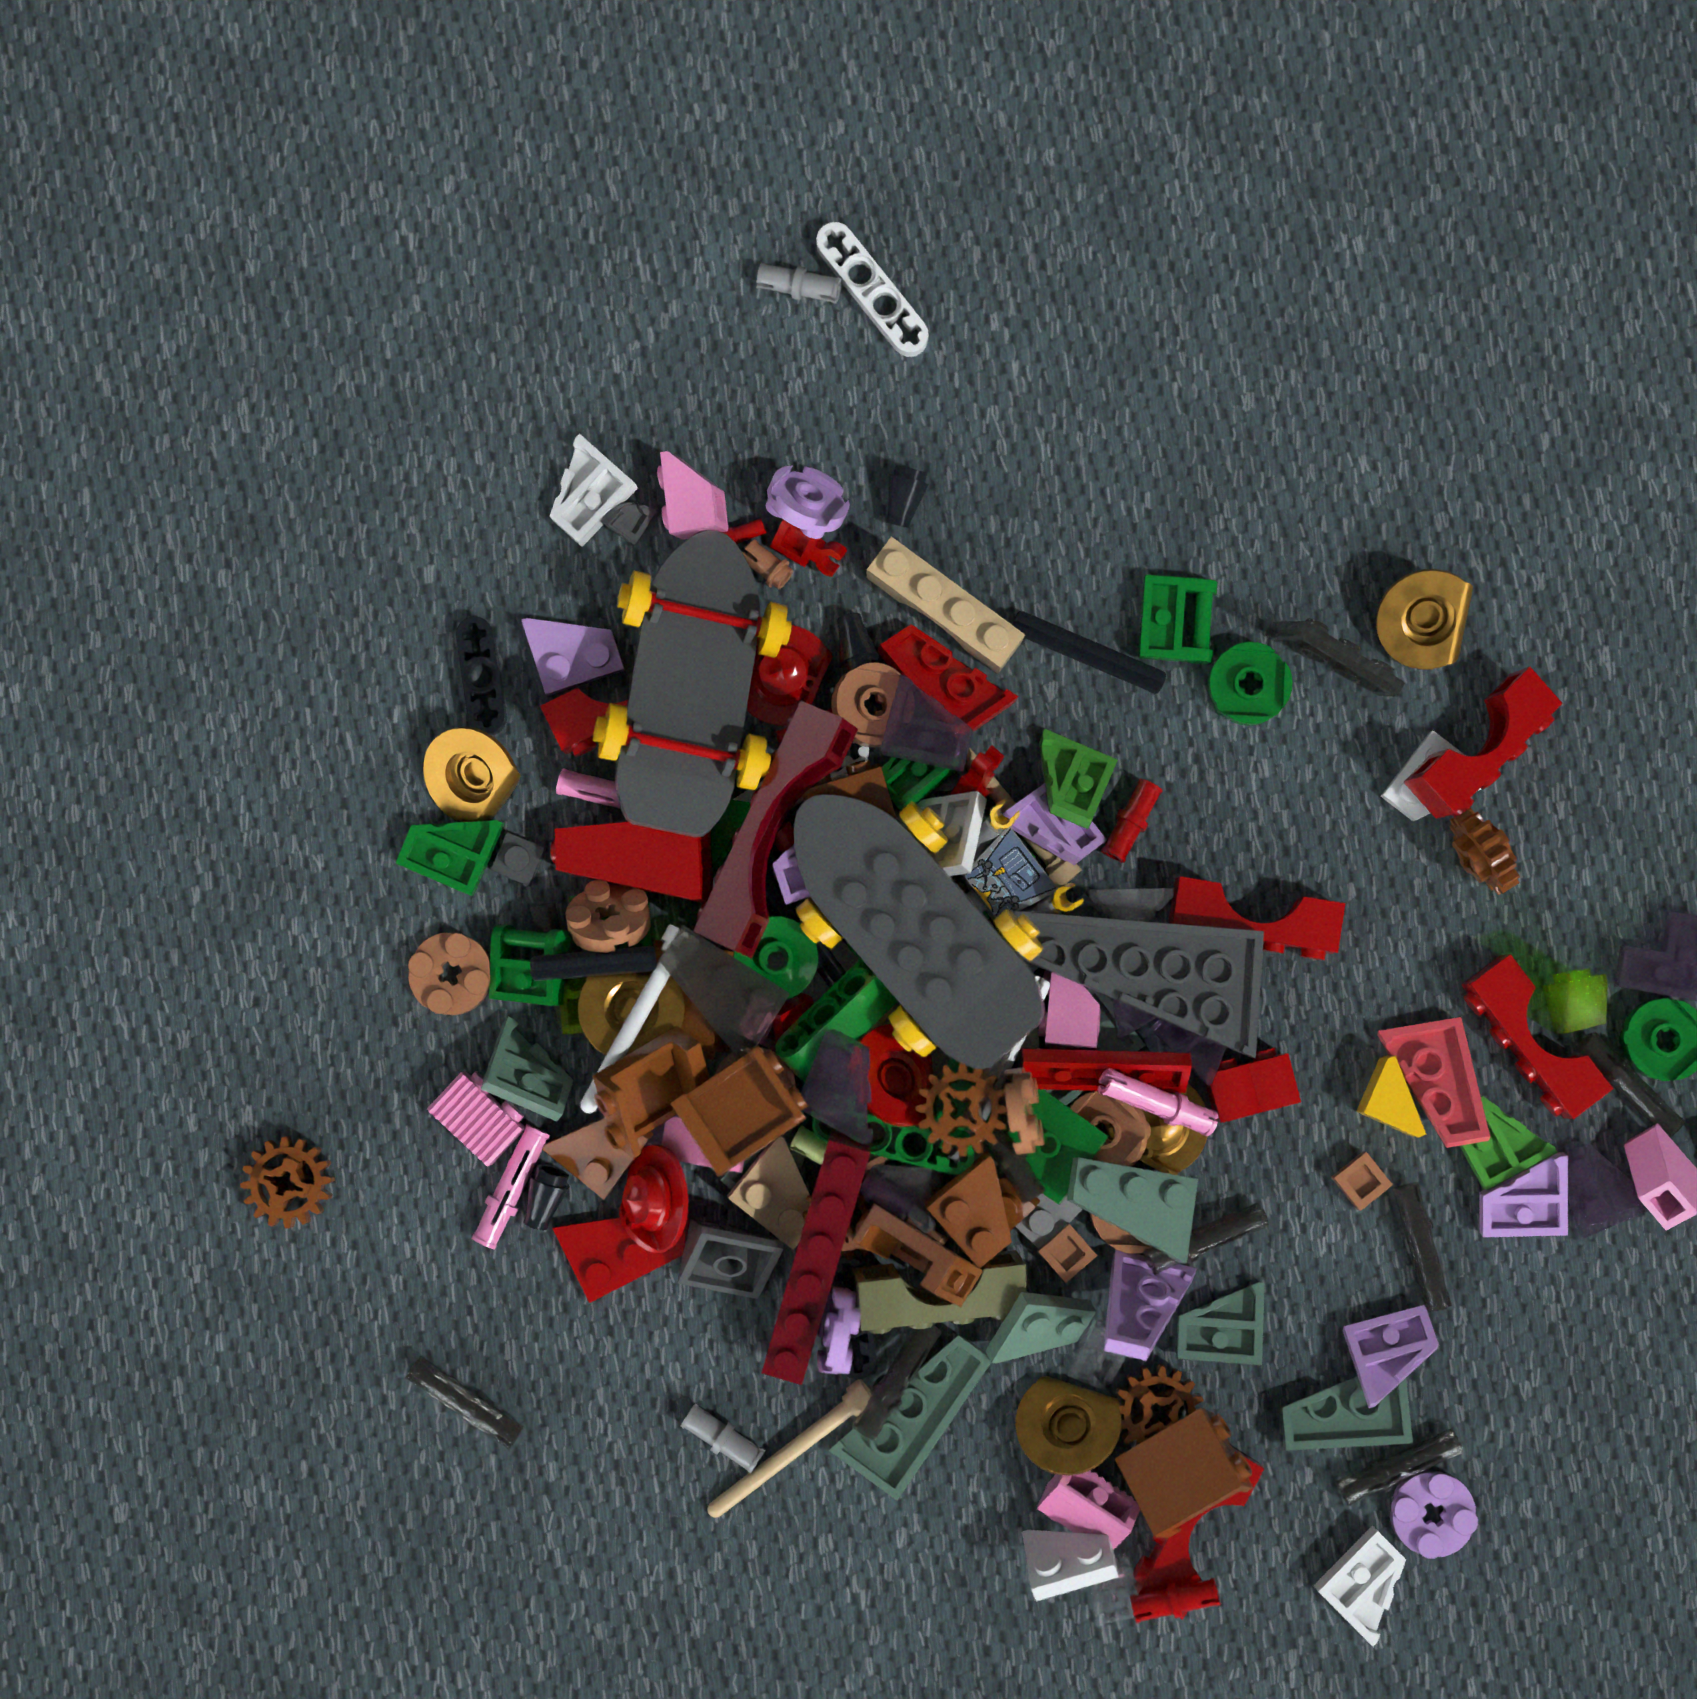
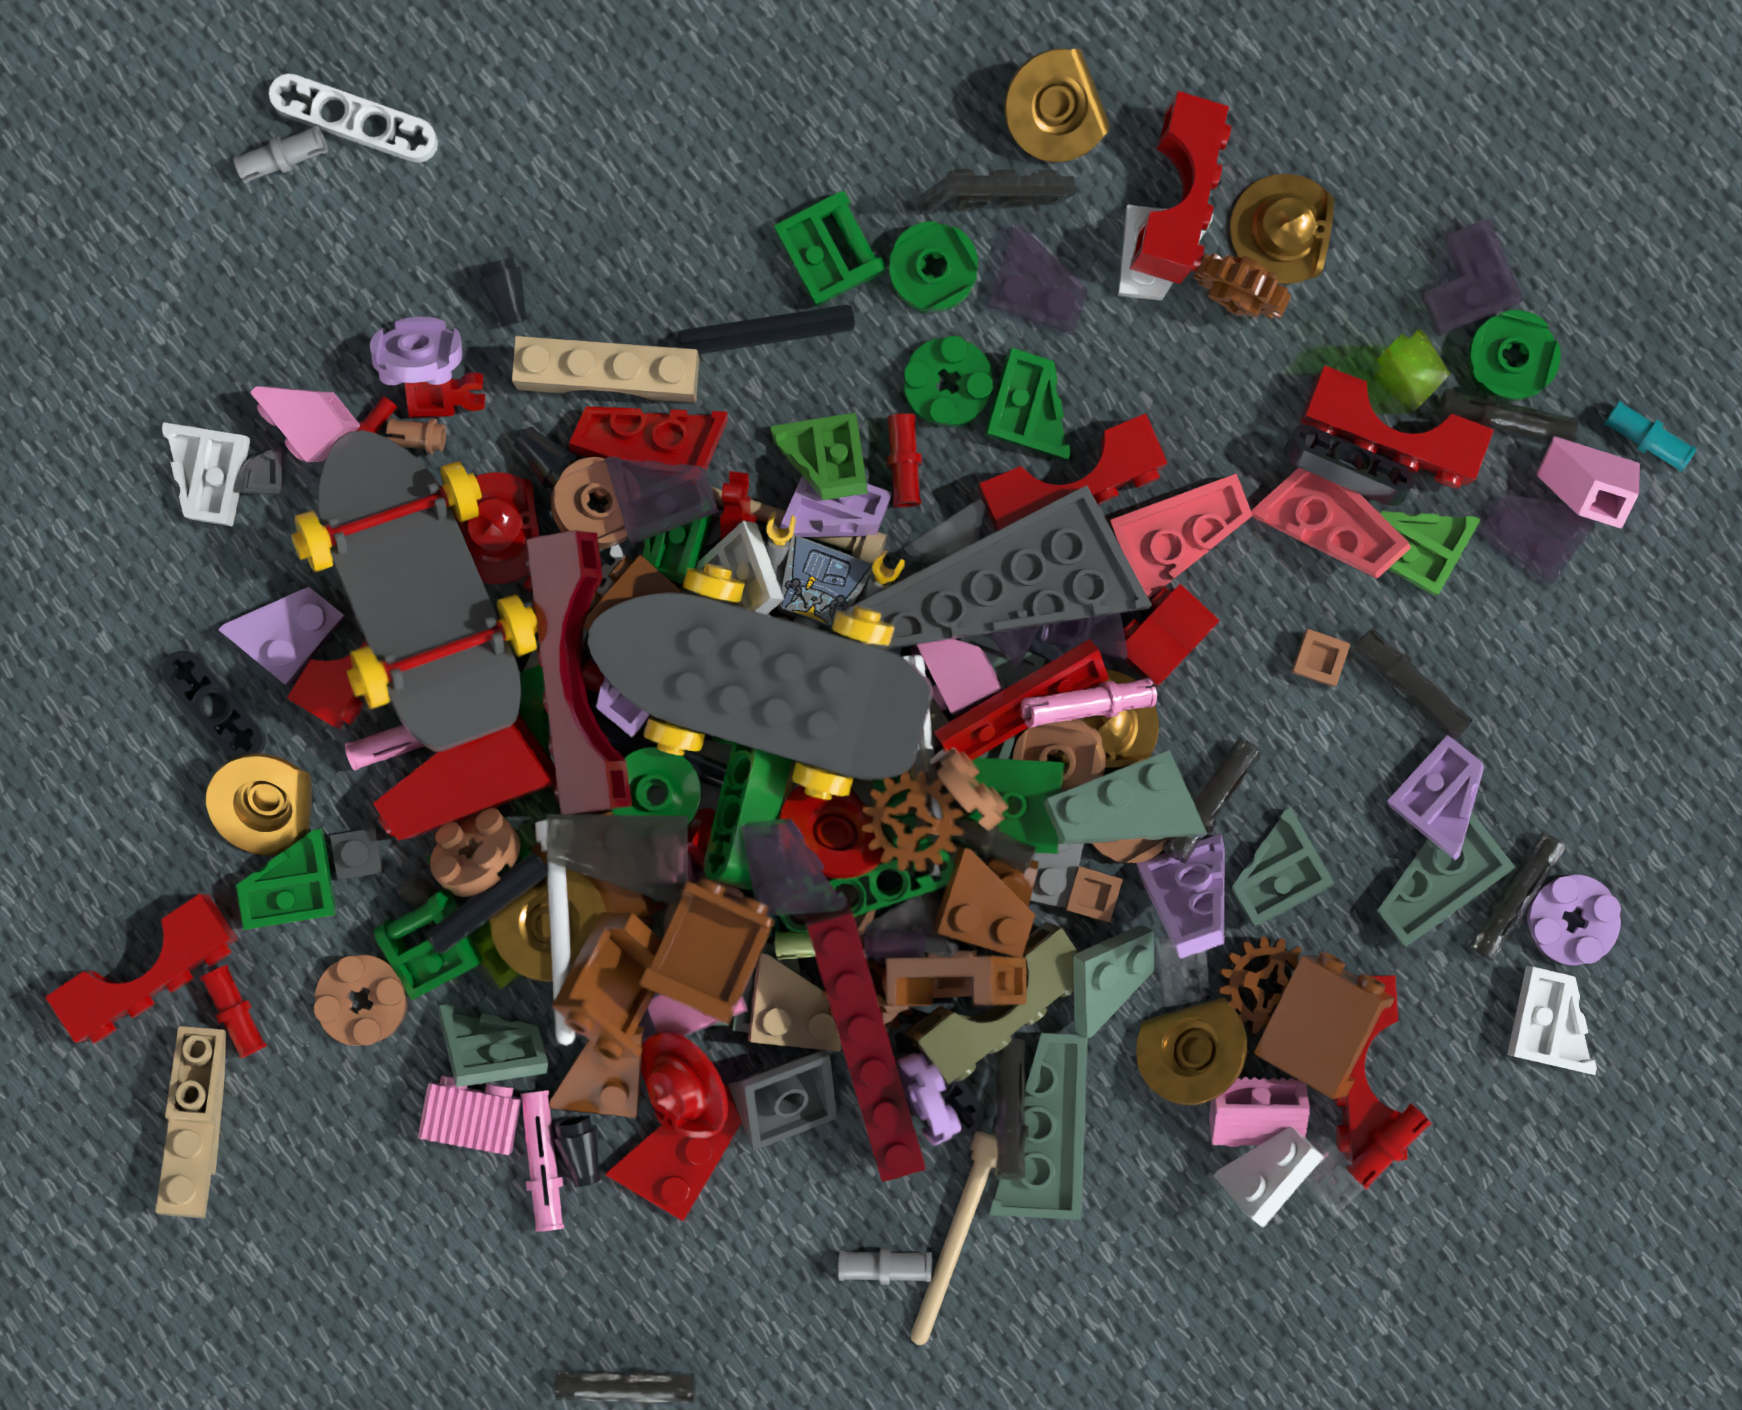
camera: 40 degrees left, 0 degrees up
(264, 986) = (193, 1122): none -> tan slope
(279, 1199) = (333, 1311): dark orange gear -> none
(348, 921) = (233, 1011): none -> red pin
(352, 843) = (190, 937): none -> red arch
(1189, 798) = (943, 407): none -> green plate
(1255, 839) = (1028, 407): none -> green wing
(1312, 1011) = (1179, 530): none -> coral wing
(1322, 749) = (1037, 285): none -> clear purple wing
(1390, 1100) = (1299, 568): yellow slope -> none
(1496, 1065) = (1321, 455): none -> black beam
(1528, 1202) = (1482, 581): lavender wing -> none
(1546, 823) = (1284, 226): none -> pearl gold hat

